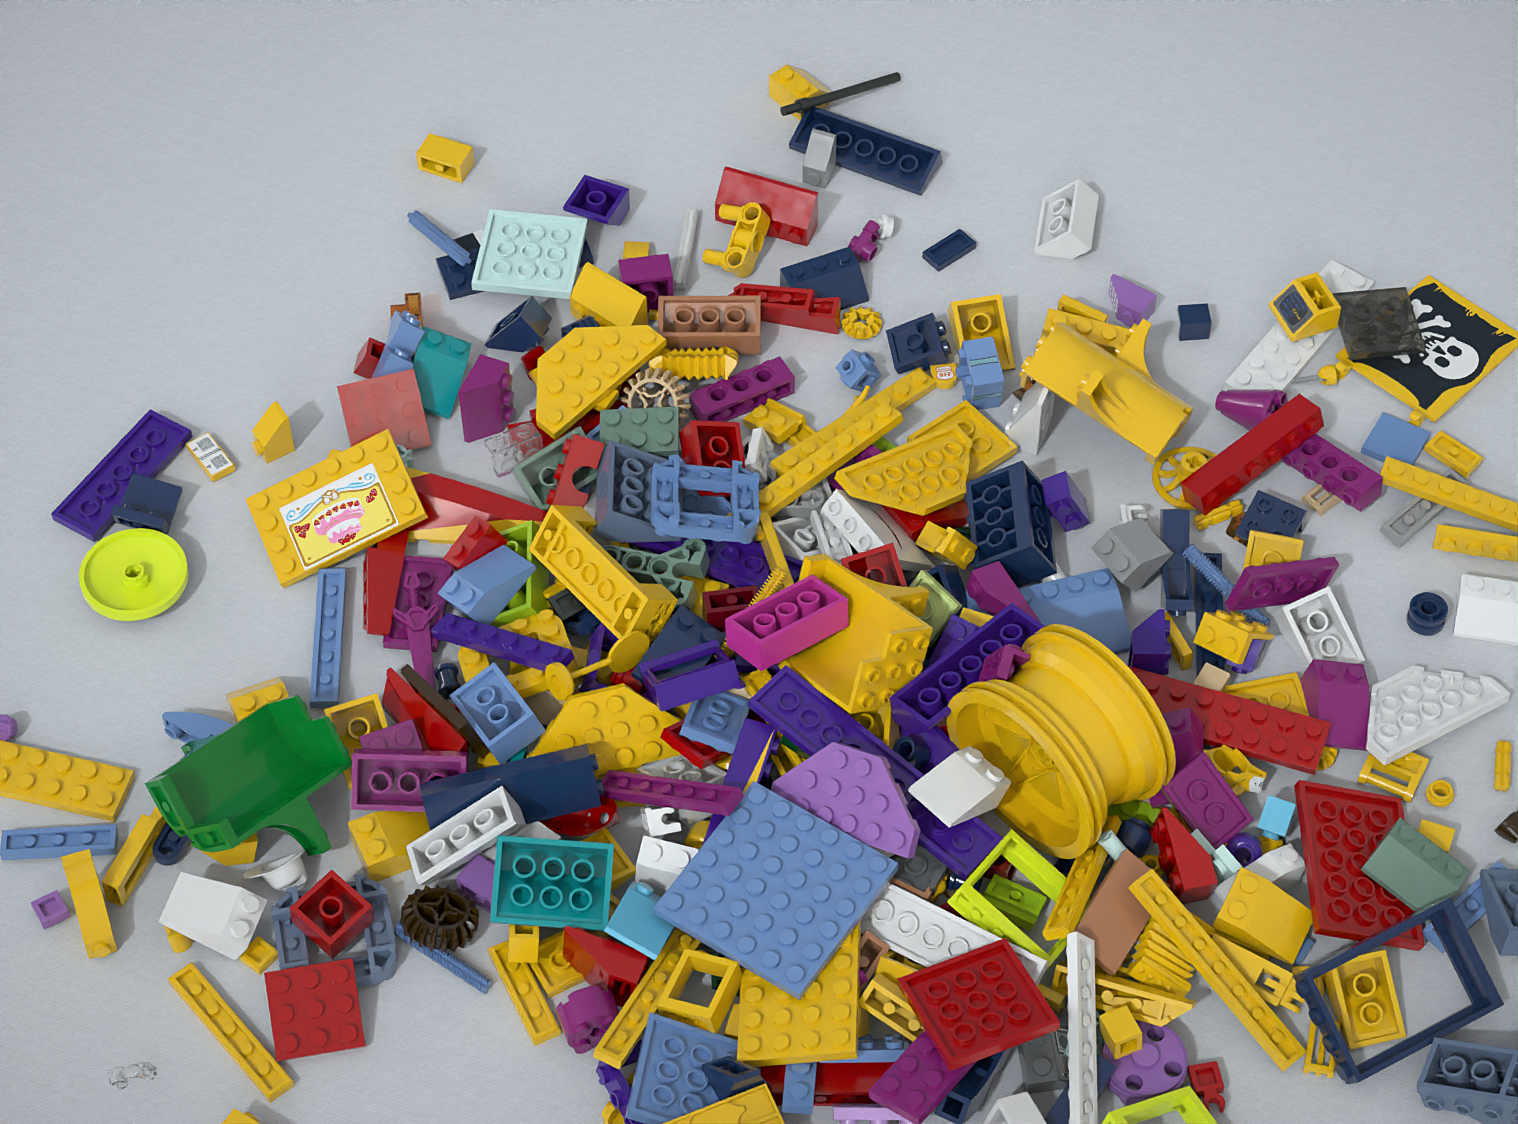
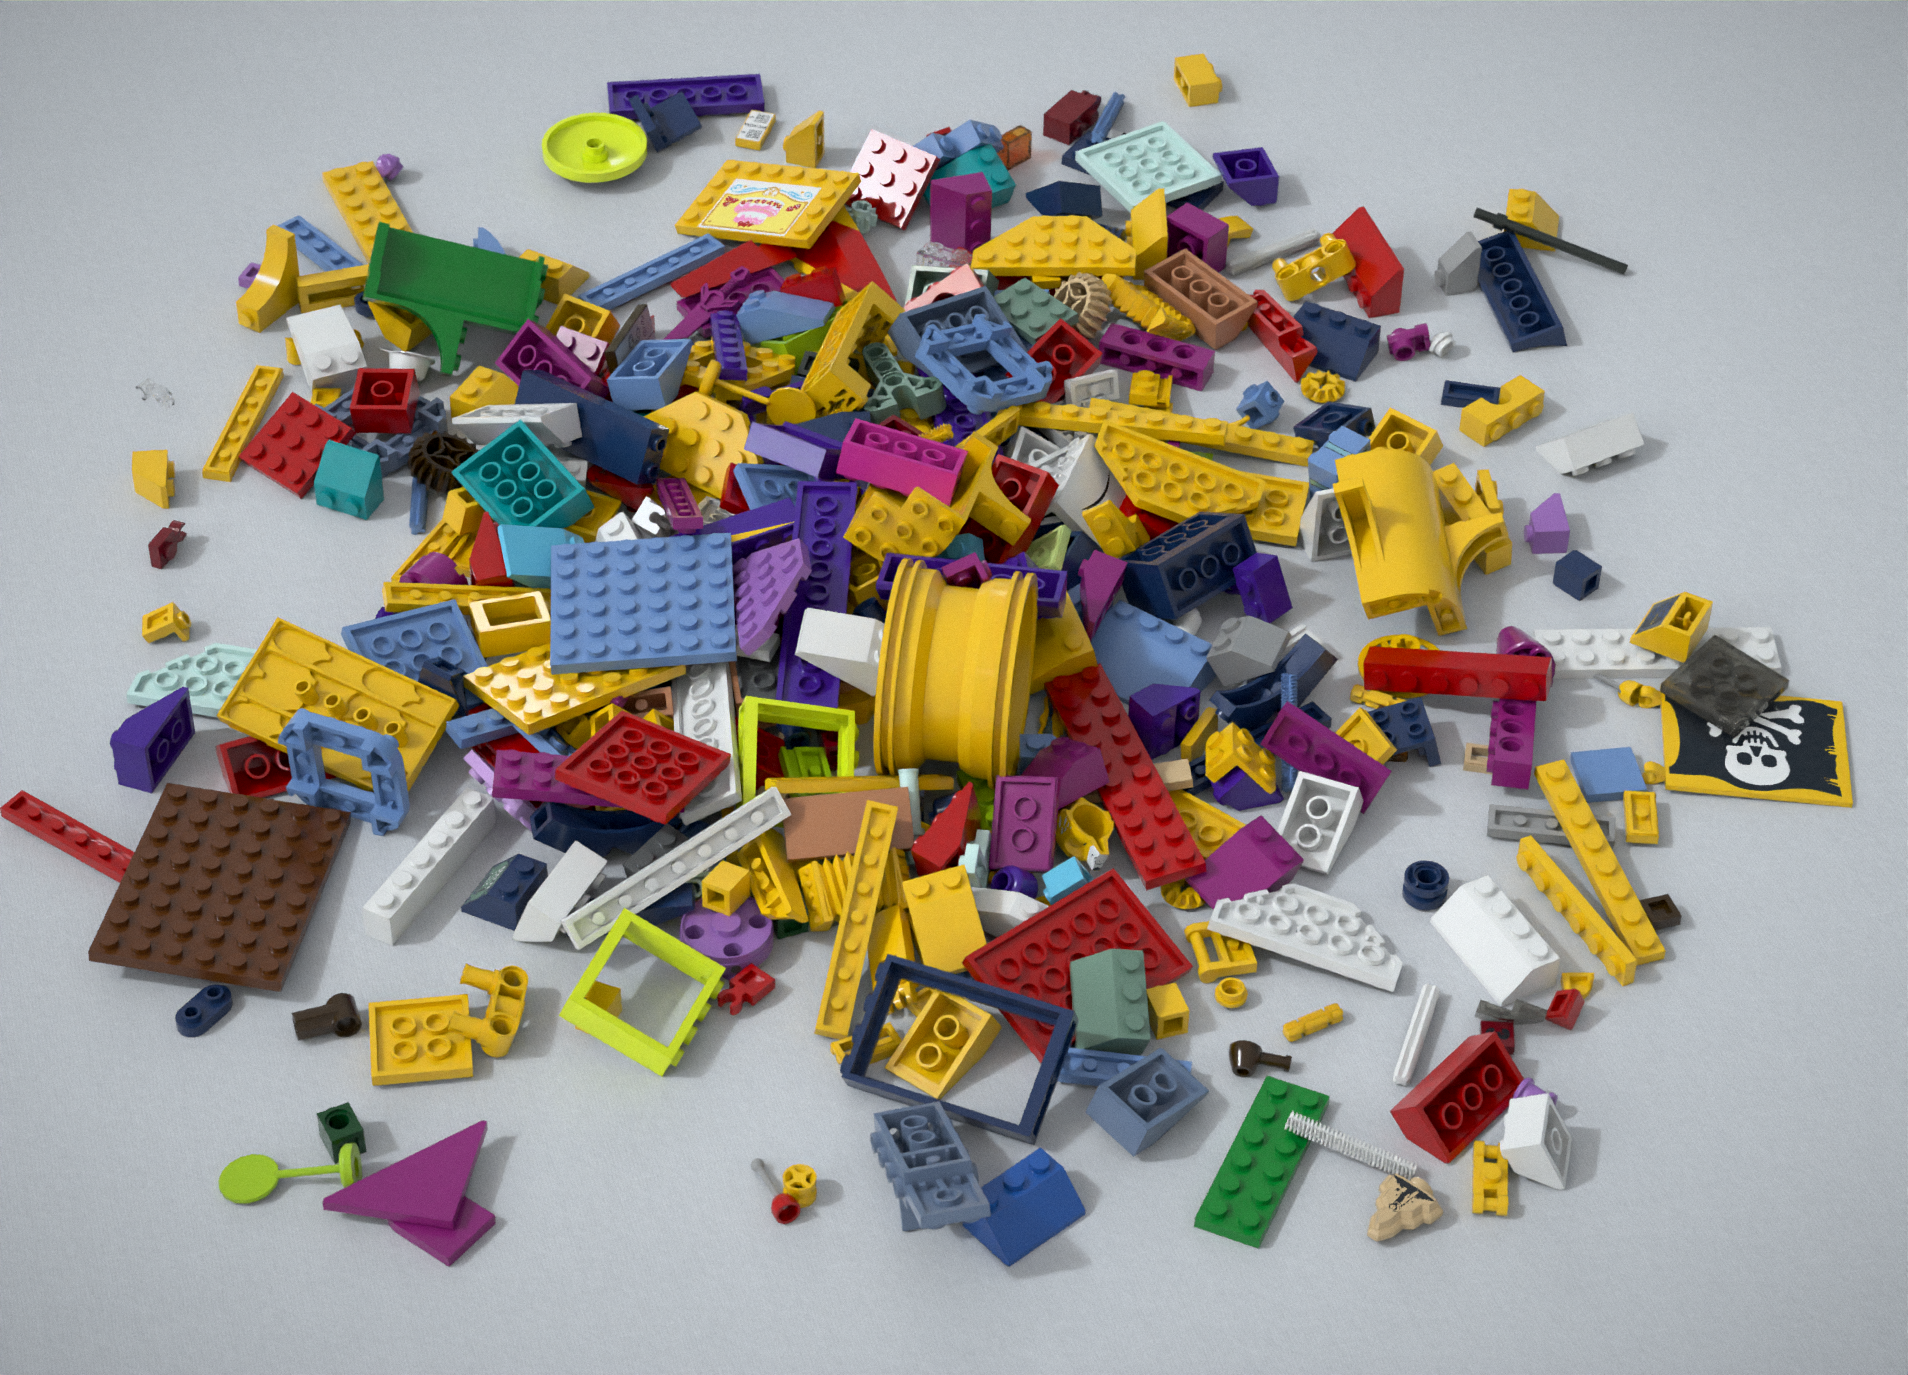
camera: 50 degrees right, 10 degrees down
(399, 1000) = (349, 480): none -> teal slope
(411, 257) = (1071, 116): none -> dark red brick
(988, 229) = (1517, 404): none -> yellow arch

